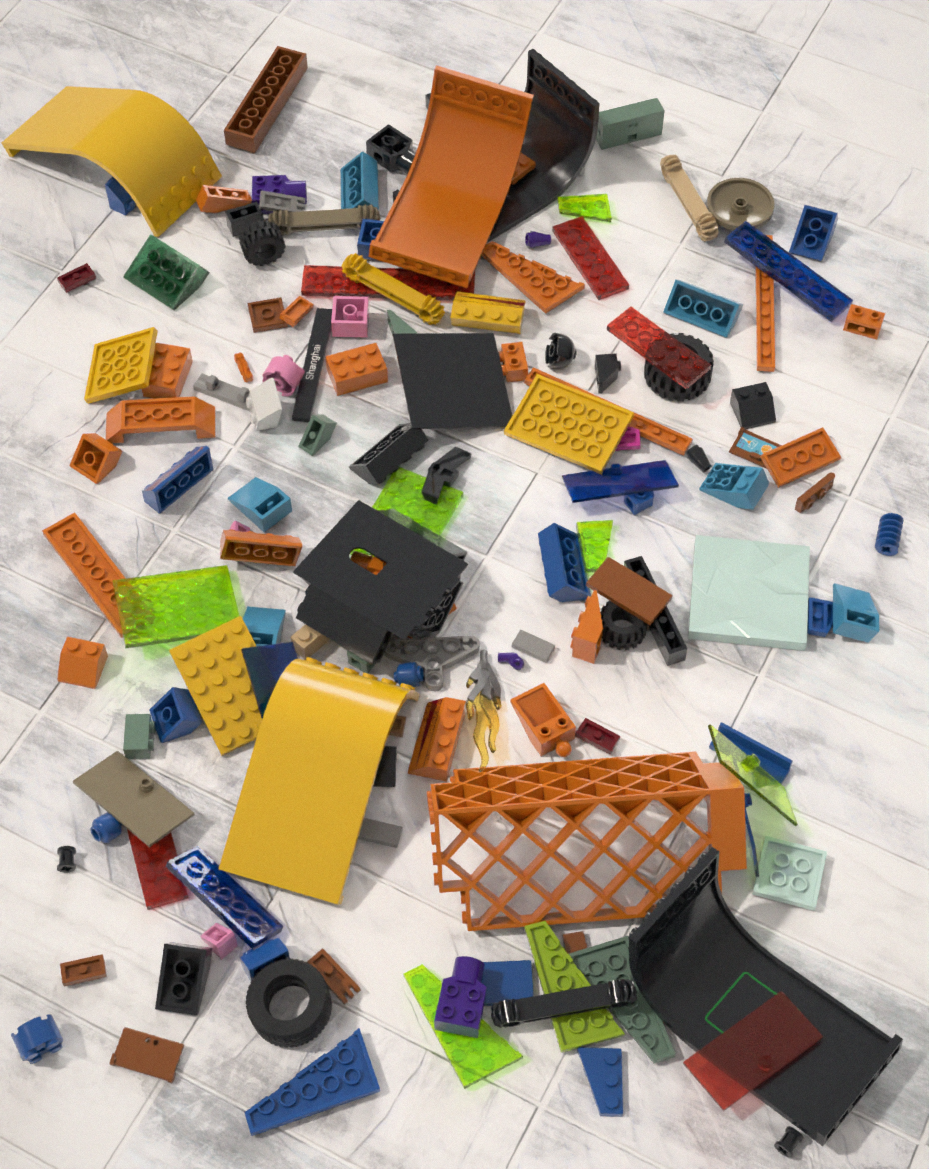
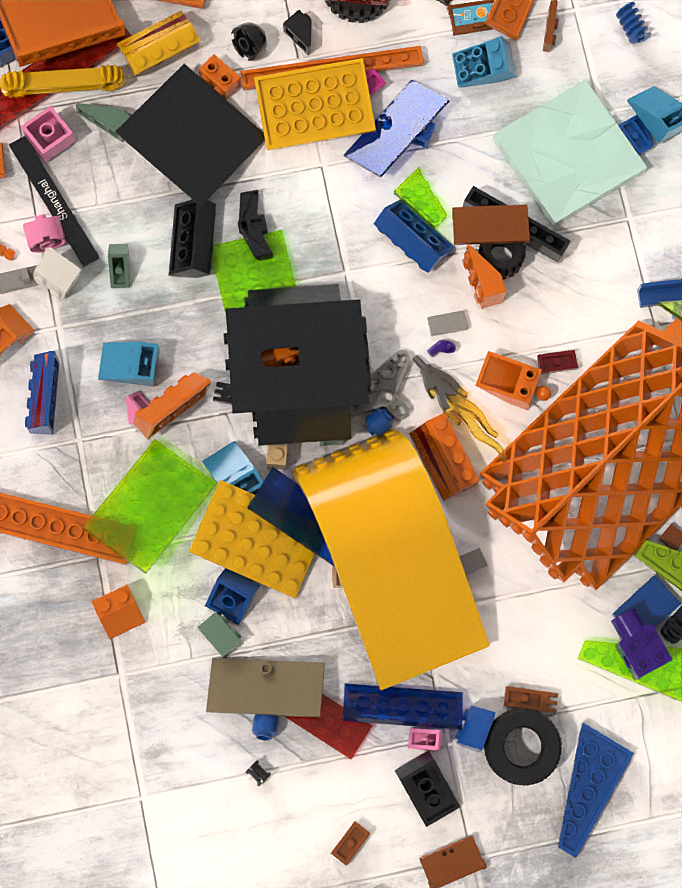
camera: 45 degrees left, 20 degrees up
(356, 369) = (97, 180): orange brick -> none
(698, 458) = (438, 59): black cone -> none

